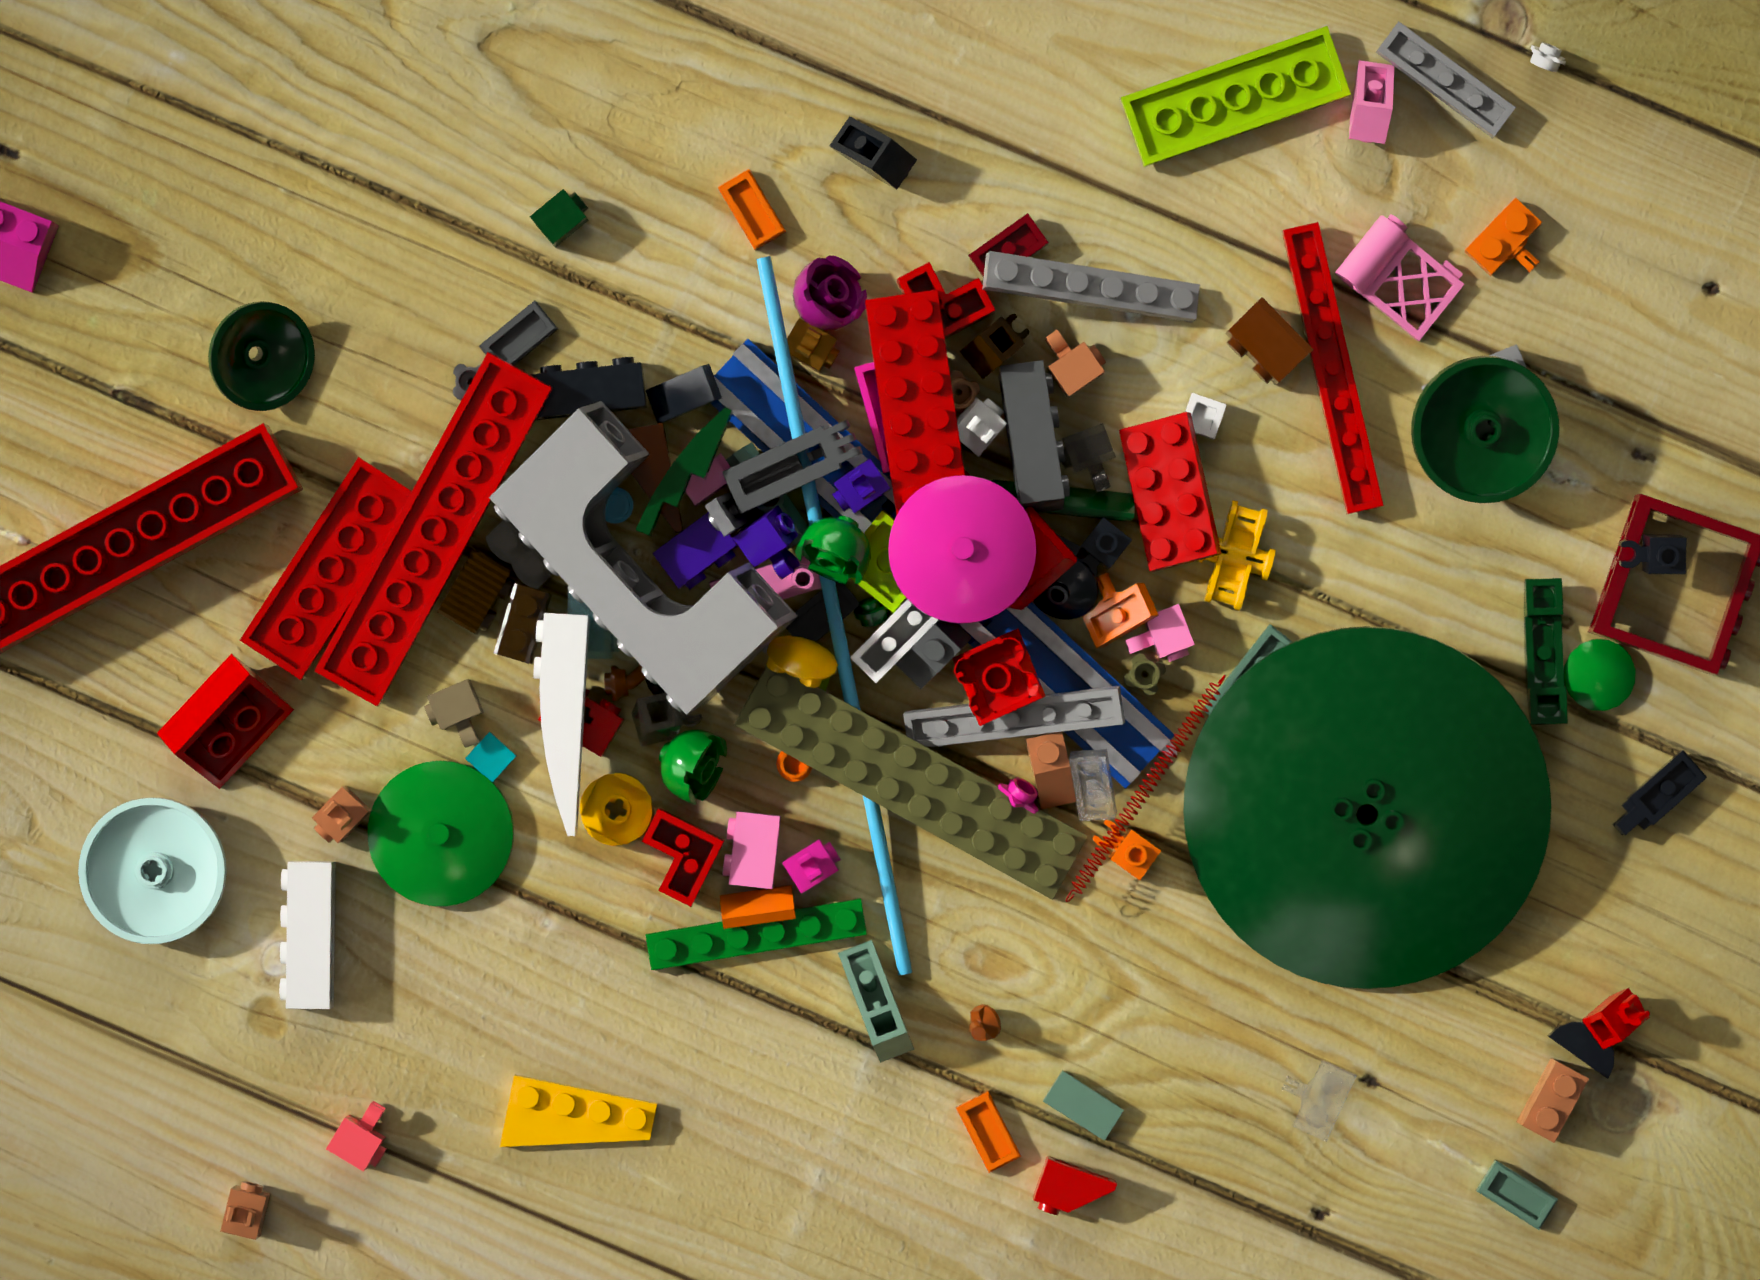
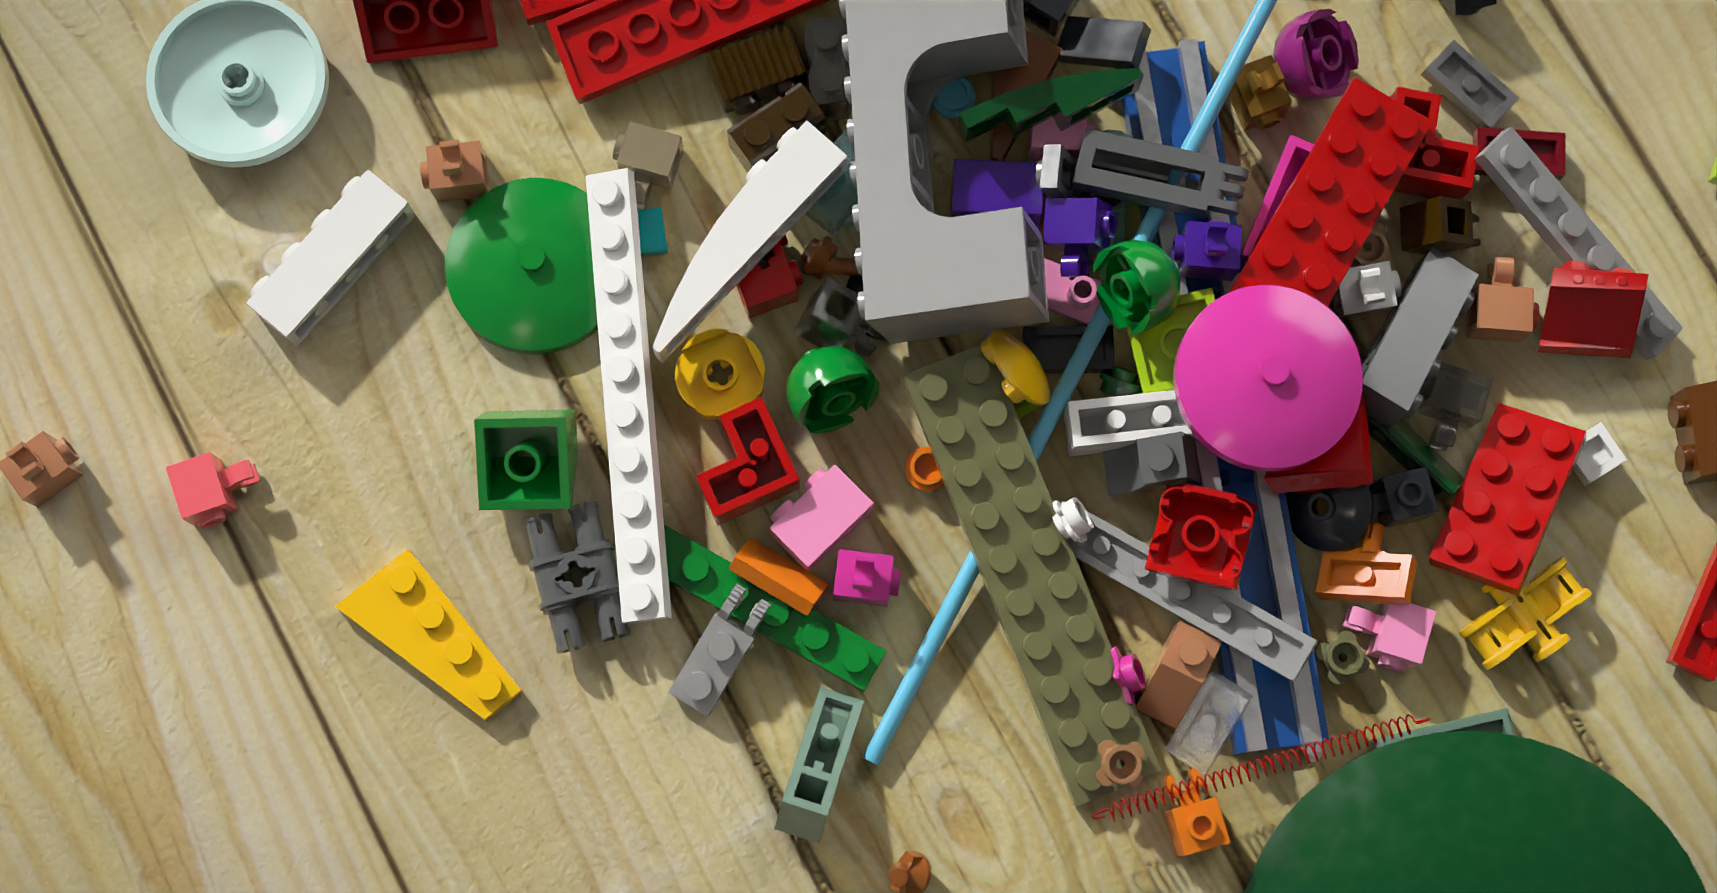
camera: 30 degrees right, 10 degrees down
(541, 961) = (526, 459): none -> green slope
(571, 870) = (628, 397): none -> white plate
(635, 1029) = (554, 566): none -> dark grey pin
(760, 986) = (718, 654): none -> light grey hinge
(911, 728) = (1072, 519): none -> white plate
(942, 227) = (1469, 86): none -> flat silver plate
(1068, 858) = (1130, 773): none -> medium nougat plate
(1131, 328) = (1592, 311): none -> red slope

